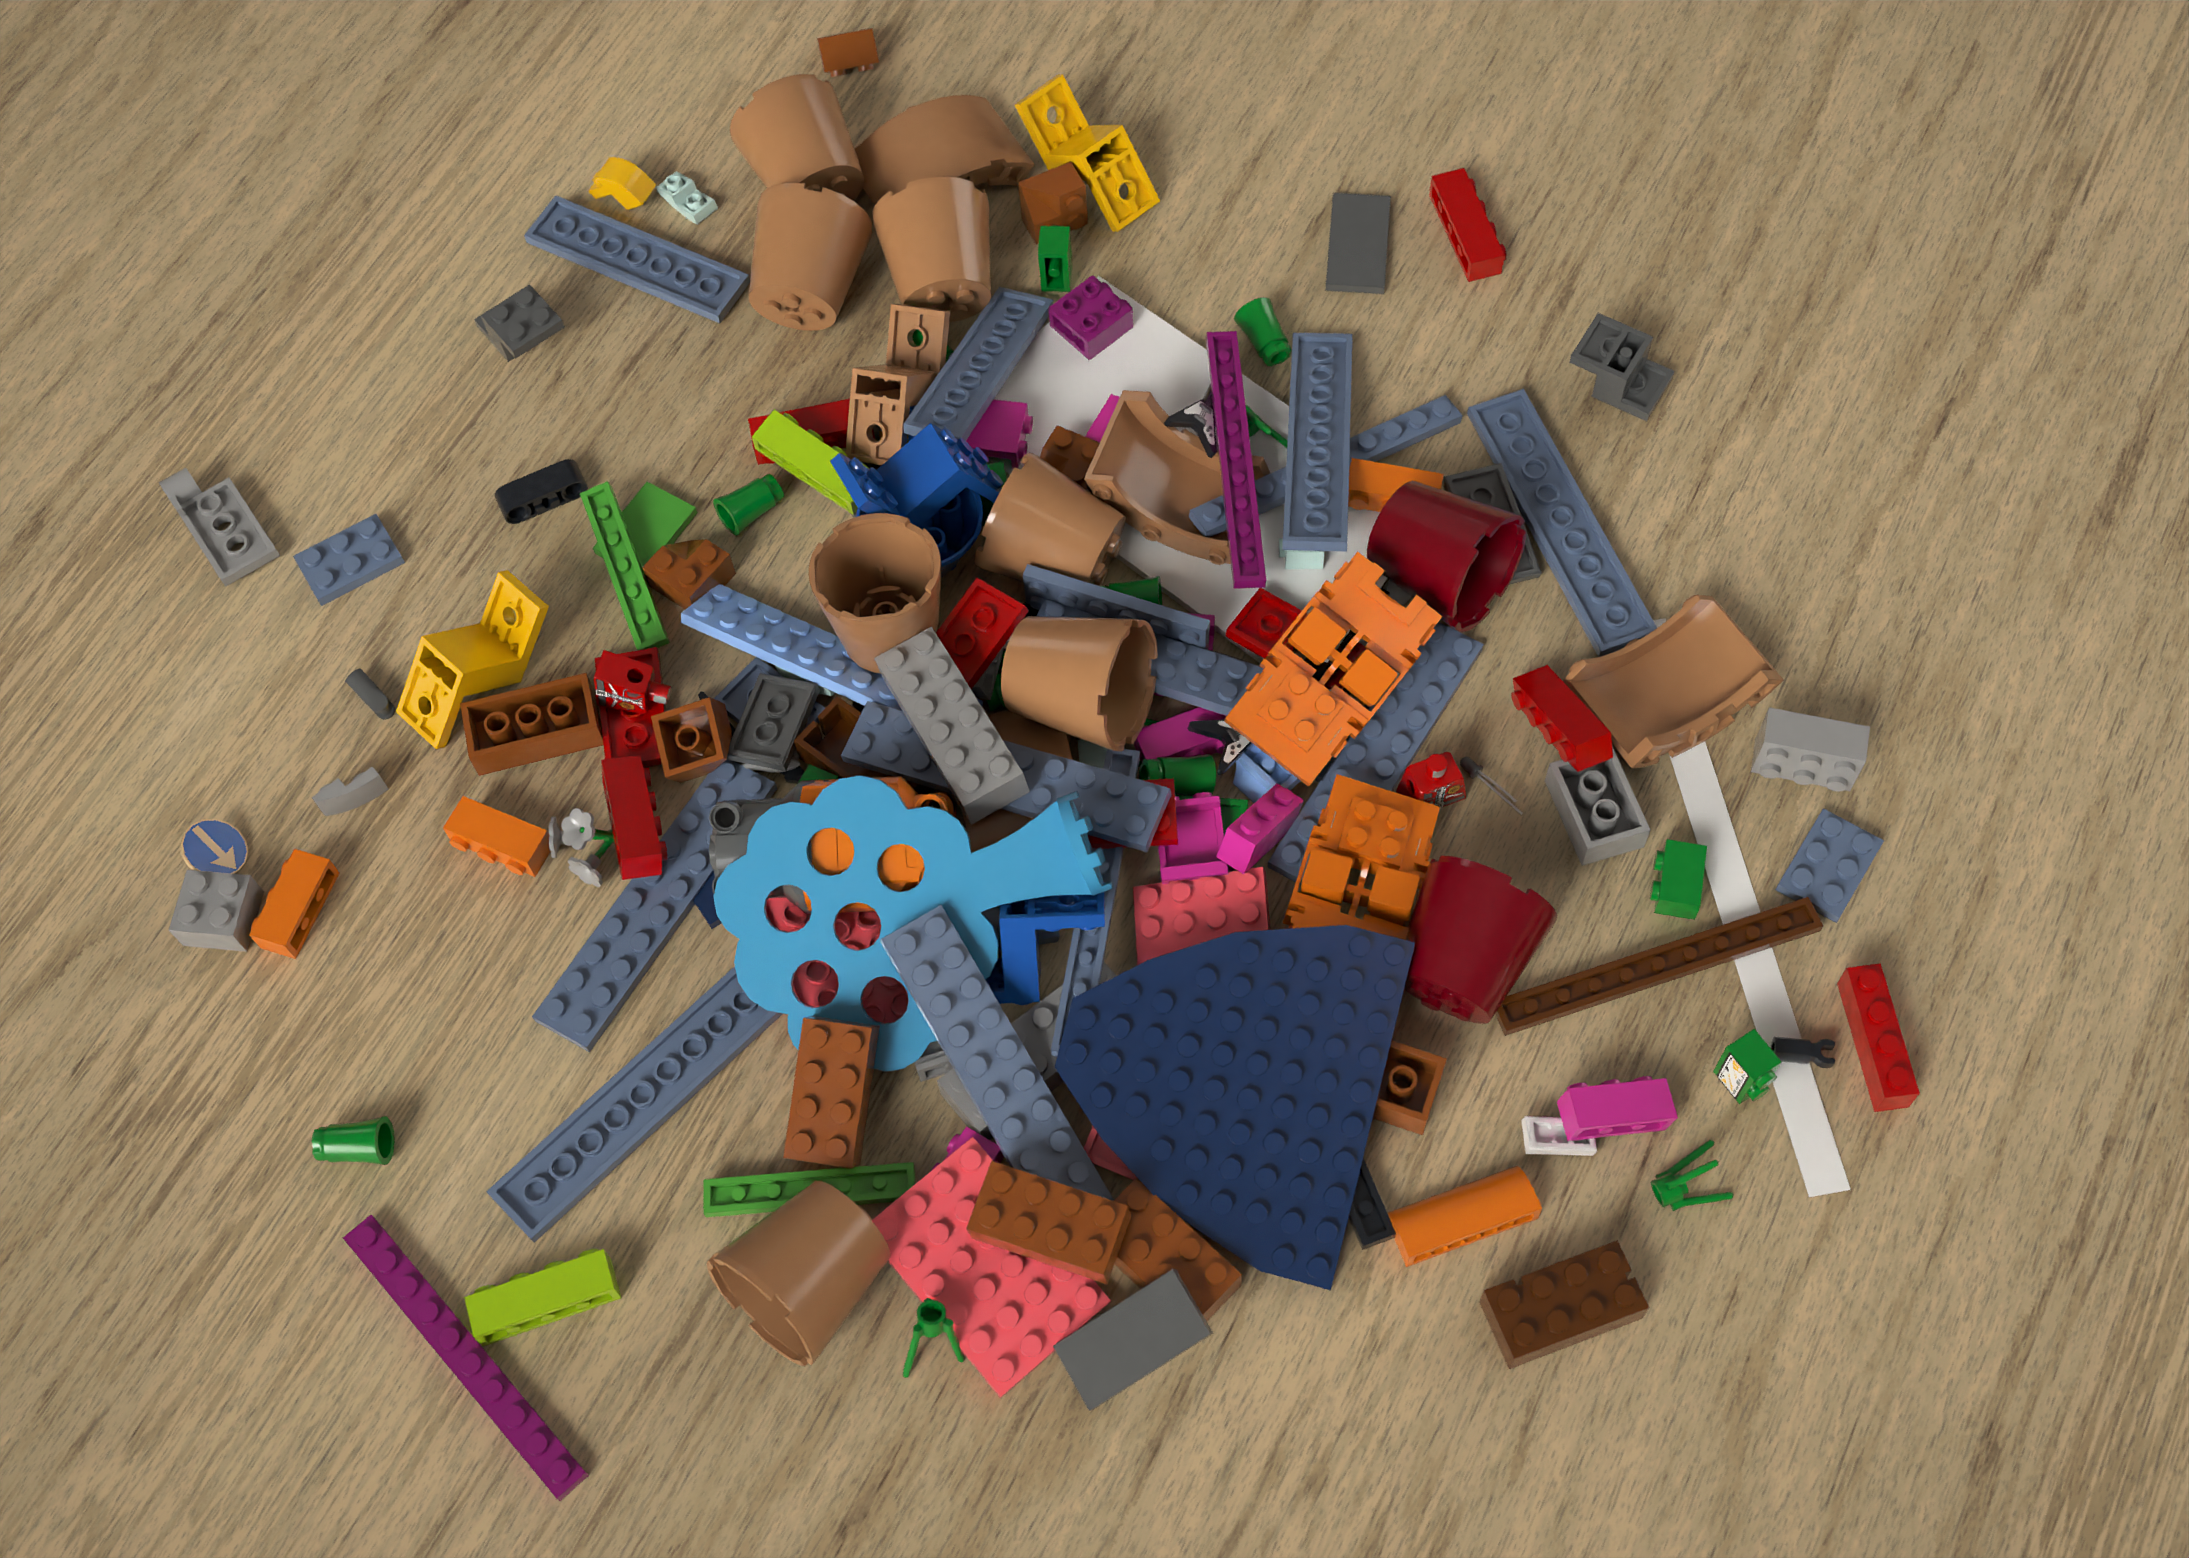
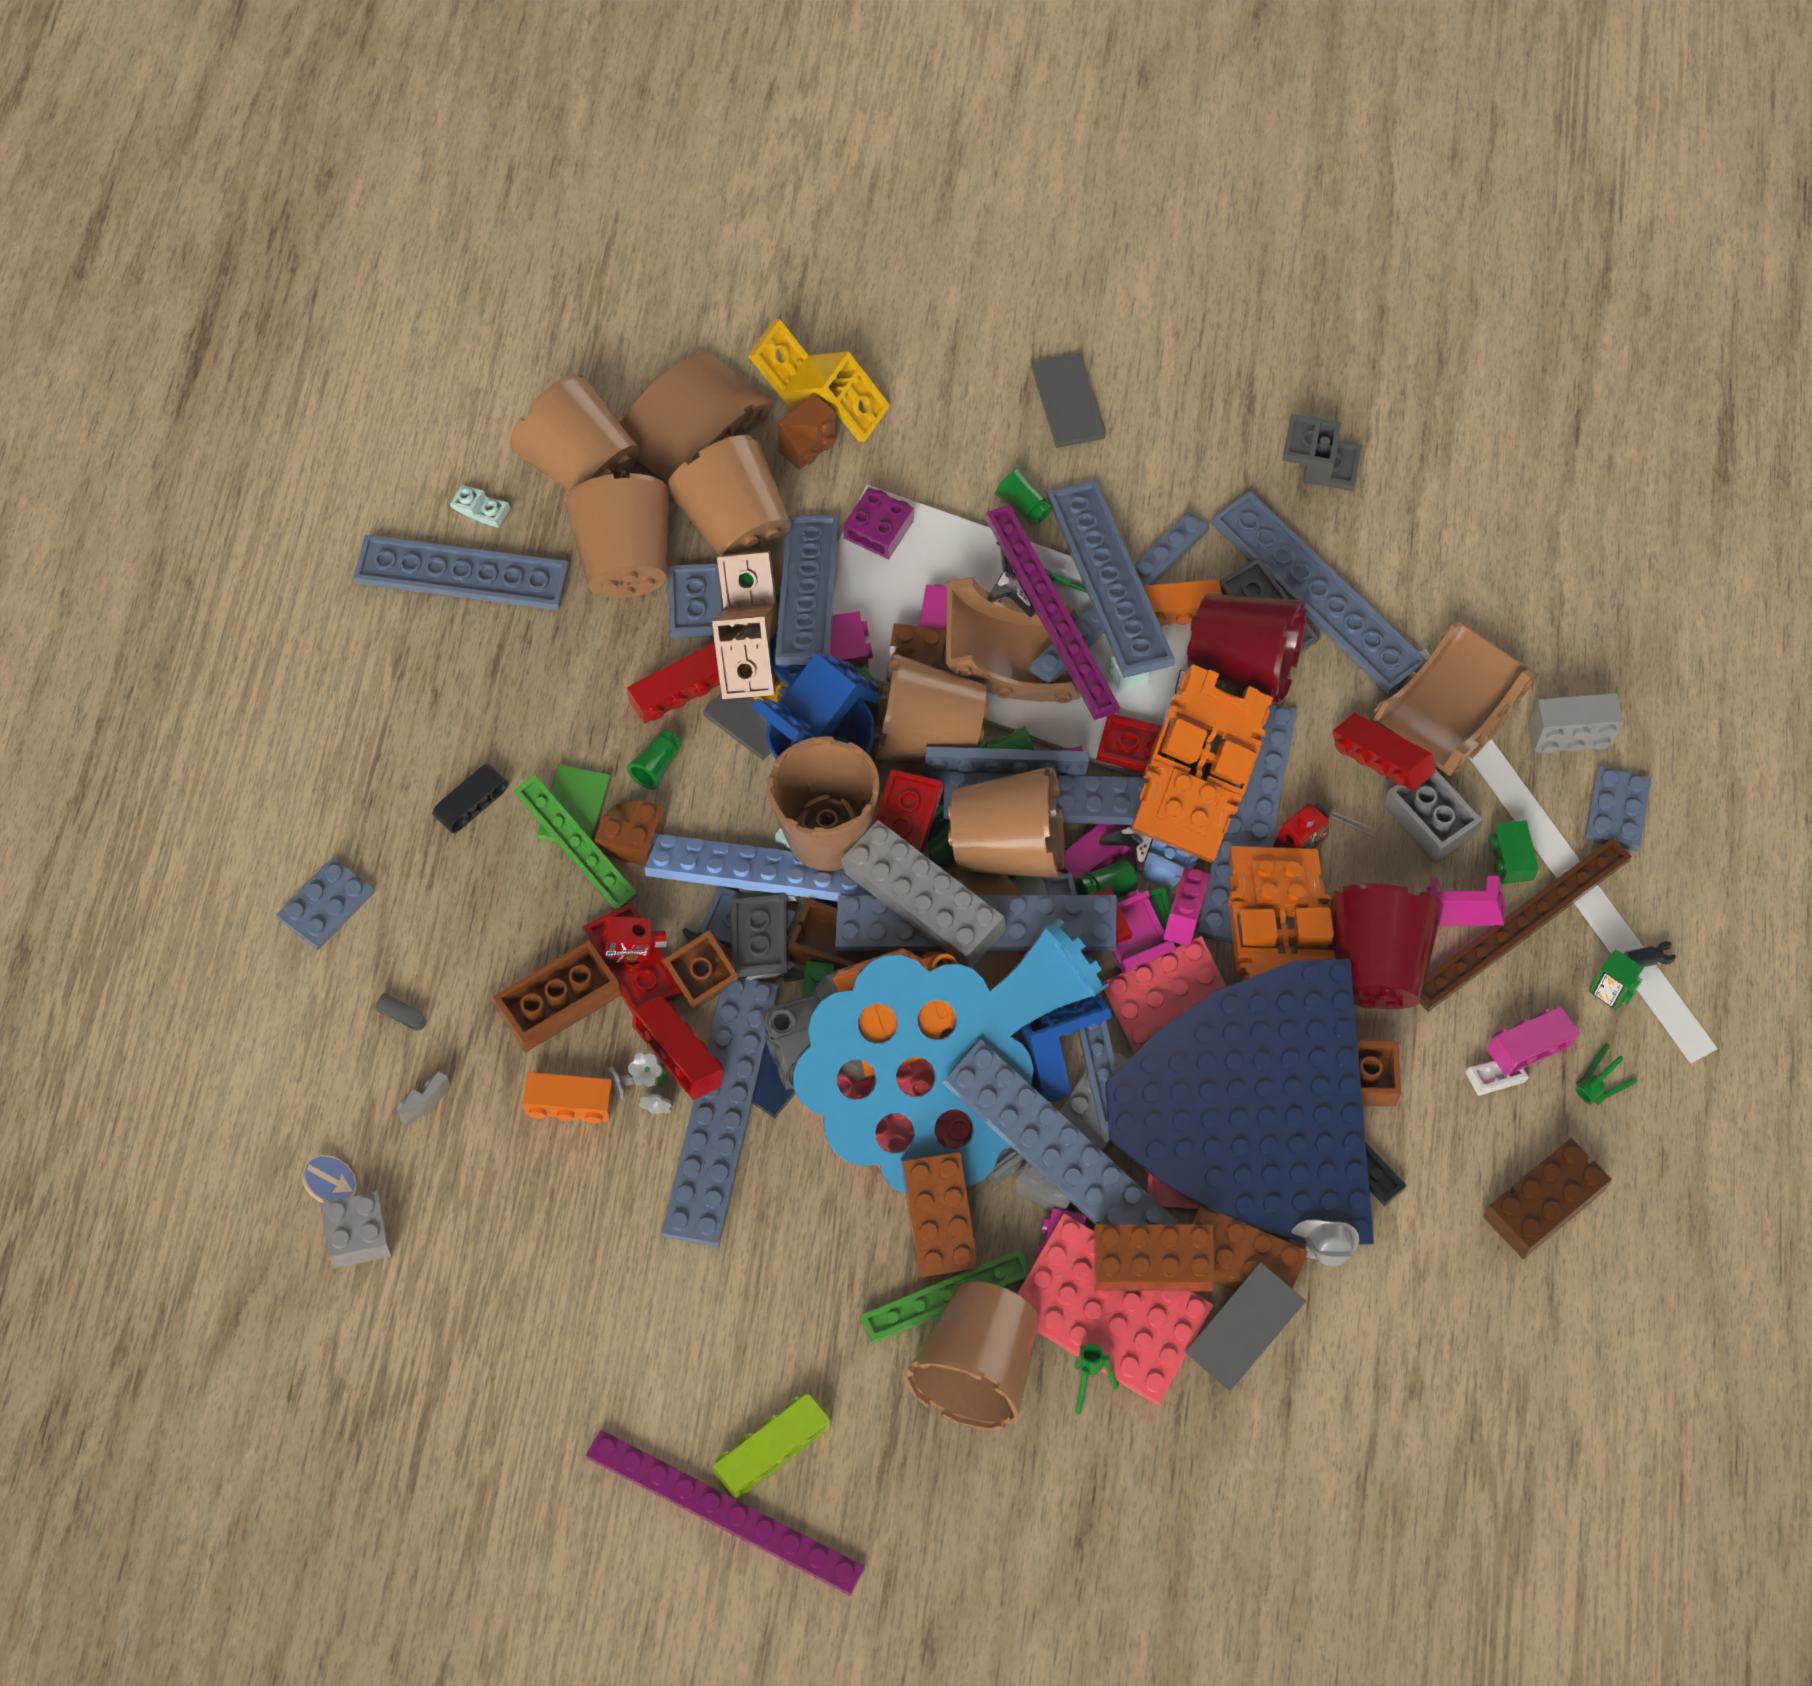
camera: 25 degrees left, 0 degrees up
(207, 511) = (183, 892): light grey hinge -> none
(294, 903) = (418, 1204): orange brick -> none
(355, 1142) = (561, 1377): green plant -> none
(471, 659) = (484, 957): yellow bracket -> none
(519, 323) = (387, 657): dark grey bracket -> none
(623, 181) = (422, 506): yellow brick -> none
(630, 1107) = (776, 1274): sand blue plate -> none
(803, 456) = (701, 708): lime brick -> none
(848, 51) = (567, 338): dark orange slope -> none
(859, 344) = (693, 599): none -> sand blue plate
(1055, 258) = (828, 479): green brick -> none
(1272, 1270) = (1327, 1241): none -> light grey piece
(1464, 1215) = (1450, 1155): orange brick -> none
(1467, 224) = (1151, 362): red brick -> none
(1596, 927) = (1471, 907): none -> dark pink panel
(1878, 1038) = (1699, 929): red brick -> none

